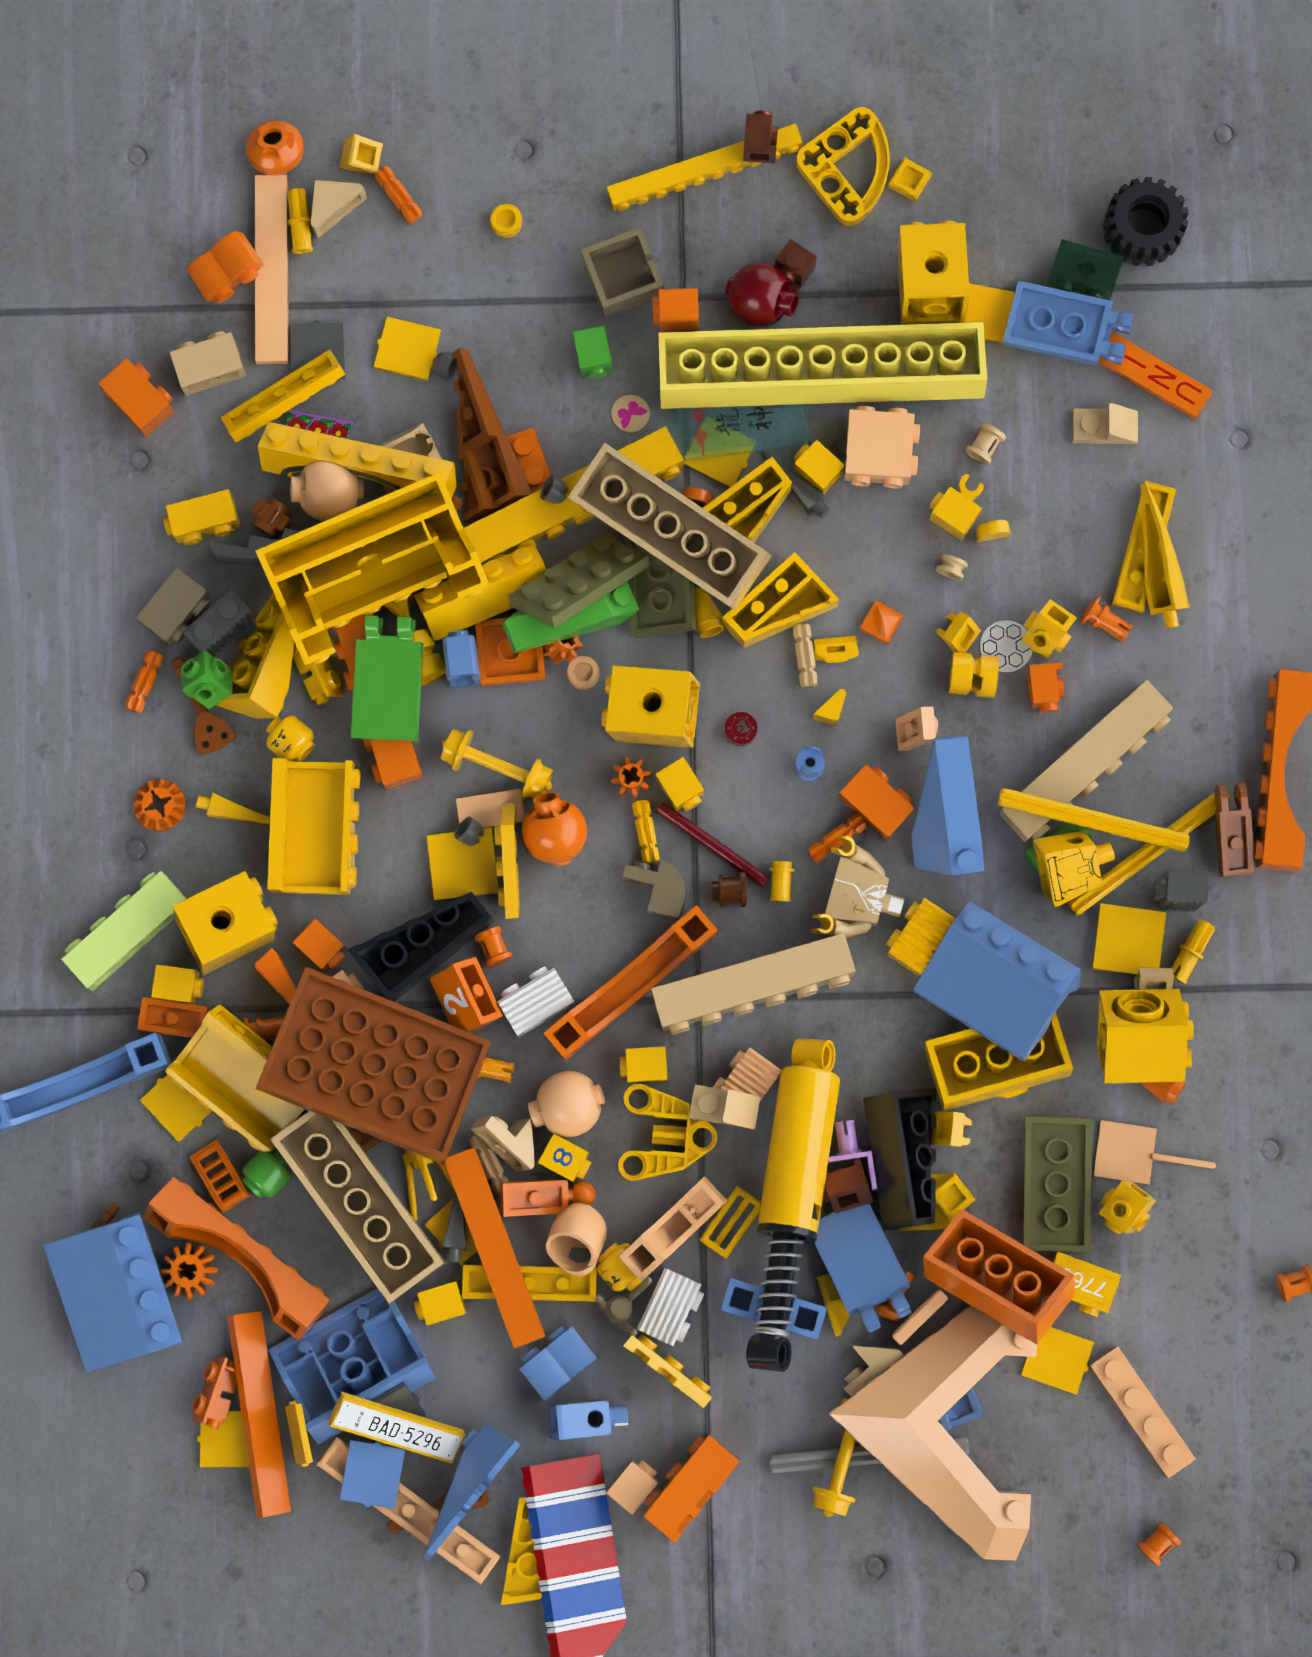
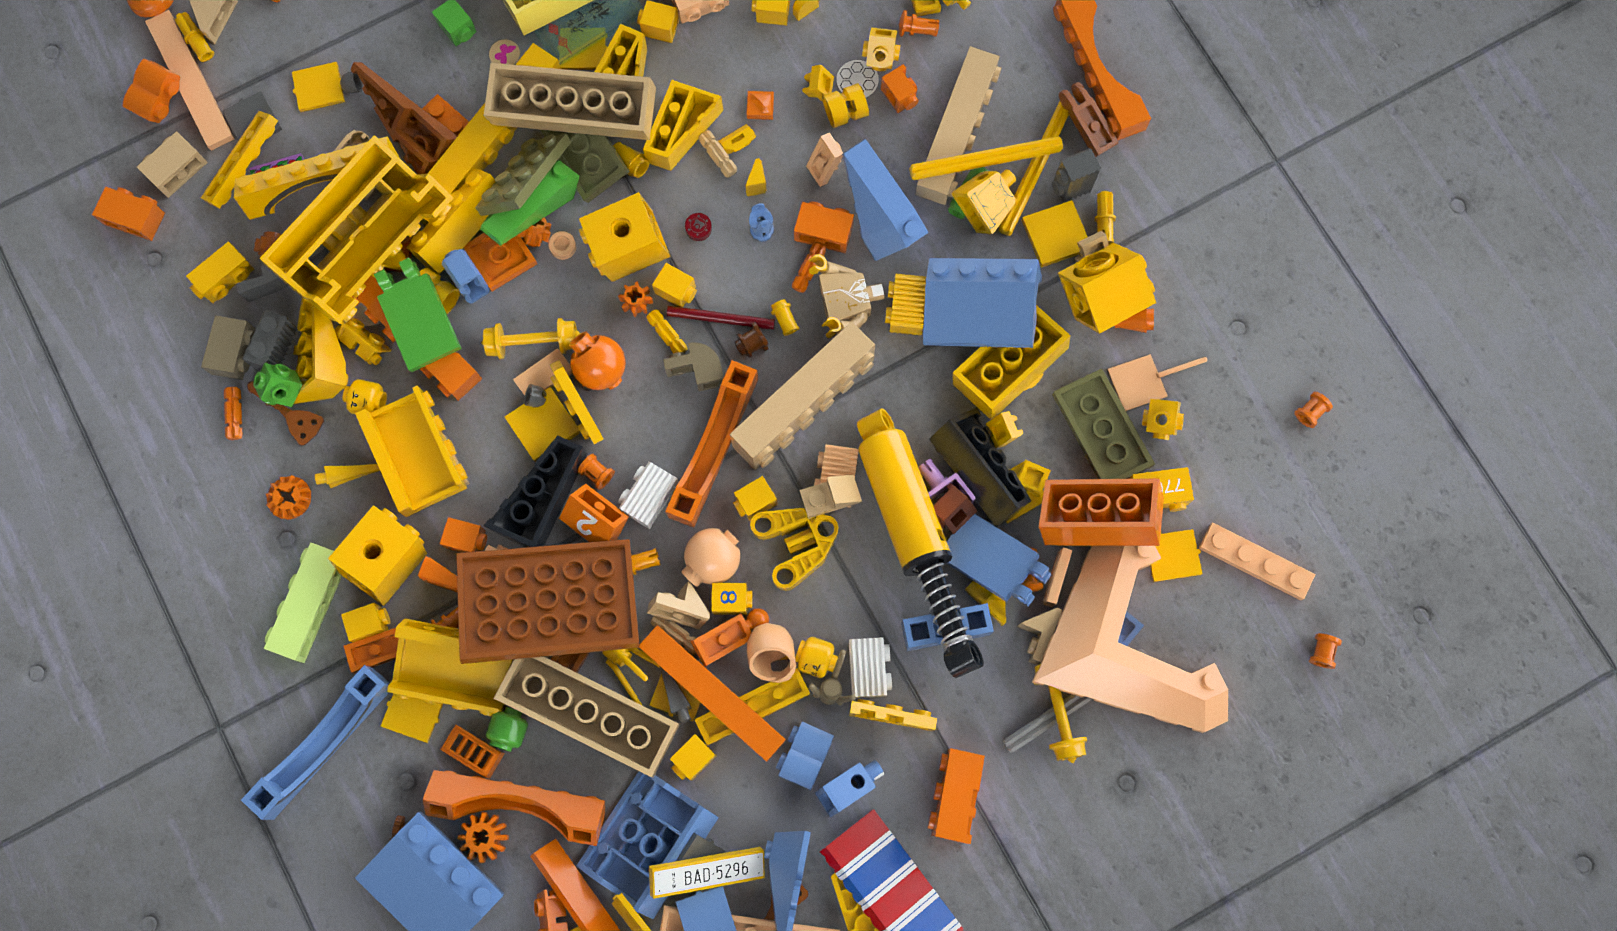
camera: 30 degrees left, 5 degrees down
(326, 490) = (294, 199): light nougat brick -> none
(554, 490) = (473, 122): dark grey hinge -> none
(633, 1485) = (913, 818): light nougat brick -> none
(673, 1229) = (840, 606): light nougat arch -> none
(715, 1246) = (877, 605): yellow tile -> none
(806, 494) = (662, 46): dark grey piece -> none
(951, 567) = (790, 42): tan bush -> none

